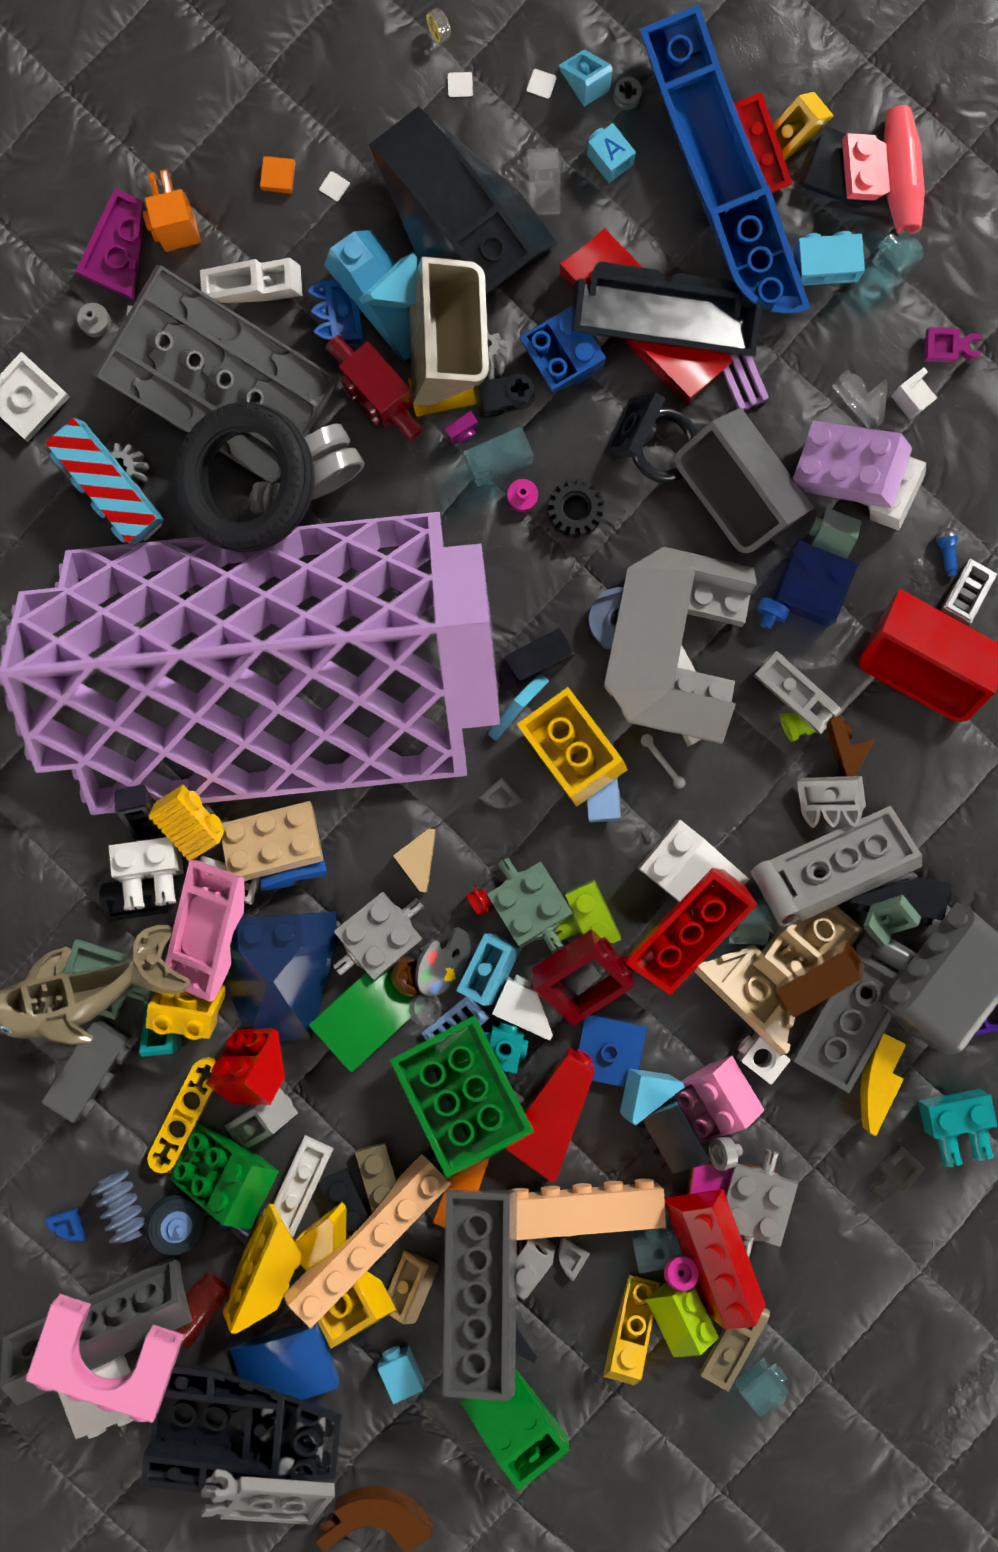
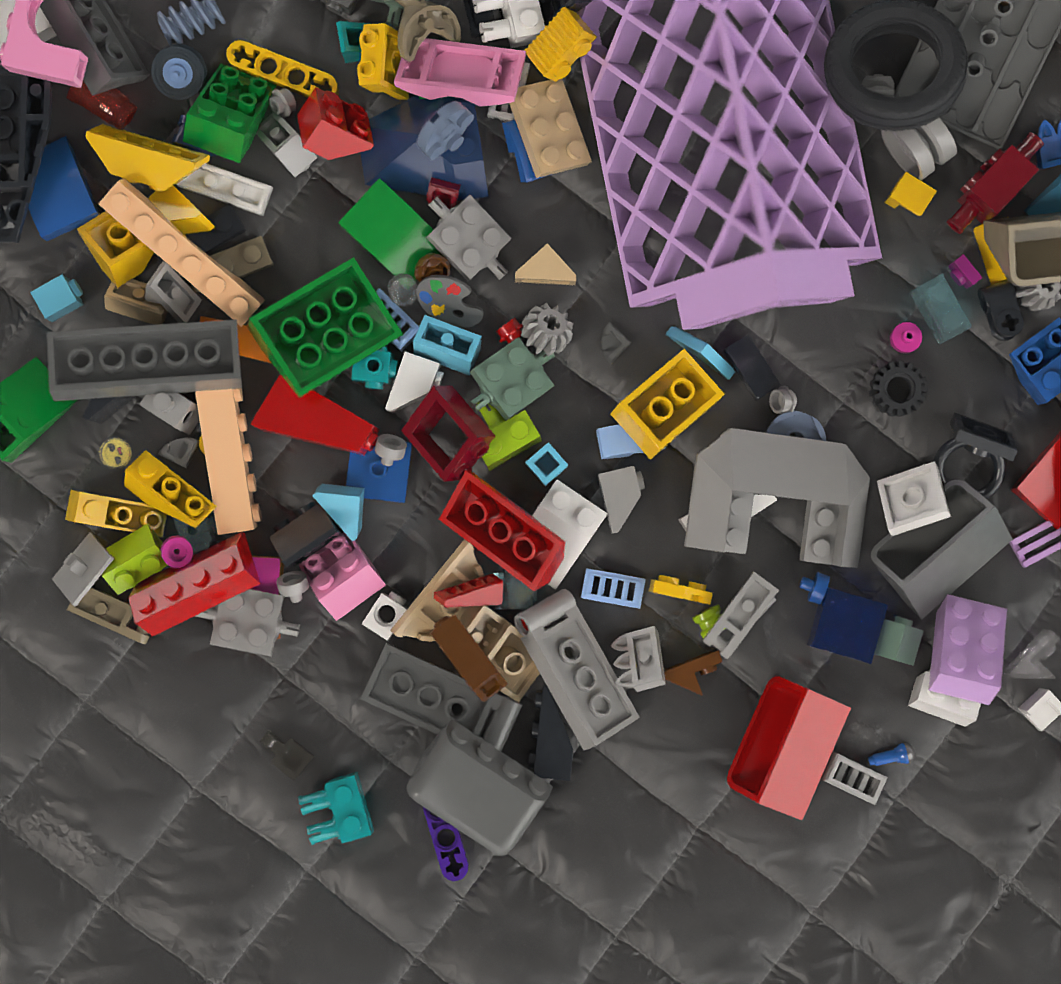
camera: 85 degrees right, 0 degrees up
(217, 1118) = (282, 102): none -> light grey plate
(269, 953) = (445, 131): none -> sand blue plate
(327, 956) = (445, 190): none -> dark red tile
(377, 475) = (911, 194): none -> yellow panel
(408, 1253) = (172, 293): none -> light grey slope
(478, 874) = (547, 329): none -> light grey gear
(567, 1325) = (115, 453): none -> clear tile
(576, 627) = (782, 400): none -> light grey plate
(591, 1038) = (390, 448): none -> light grey tile
(615, 1276) = (166, 490): none -> yellow slope
(622, 877) = (546, 464): none -> medium azure brick
(647, 741) = (679, 479): light grey hinge -> none
(659, 803) = (620, 494): none -> light grey slope
(688, 1372) = (82, 569): none -> light grey piece
(692, 504) = (913, 498): none -> white plate
(739, 828) = (588, 583): none -> light blue slope
(750, 965) = (475, 592): none -> slope
(763, 761) = (669, 586): none -> yellow plate
(763, 1387) = (73, 643): clear light blue brick -> none
(879, 1082) = (374, 729): yellow slope -> none
(889, 918) = (531, 722): sand green bracket -> none

